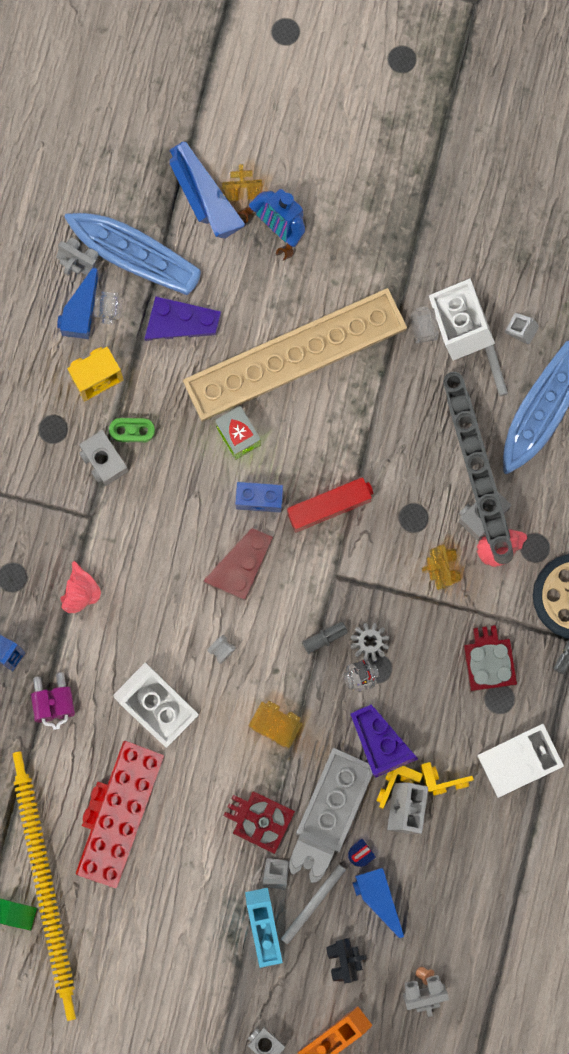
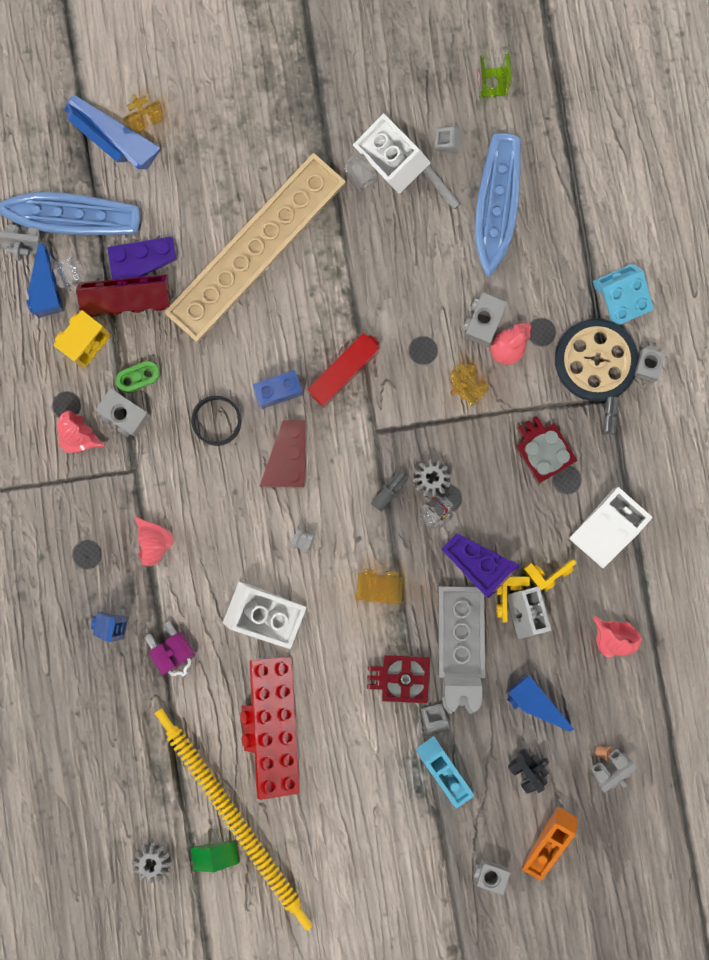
camera: 20 degrees left, 5 degrees up
(50, 460) = (75, 434): none -> coral hair
(152, 348) = (124, 295): none -> dark red brick
(186, 479) = (204, 401): none -> black tyre
(238, 433) = (234, 339): piece -> none
(280, 215) = (189, 125): blue torso -> none
(313, 904) = (479, 733): light grey bar -> none
(360, 854) = (502, 670): clear blue tile -> none
(481, 480) = (472, 291): dark grey beam -> none
(482, 869) = (616, 638): none -> coral hair

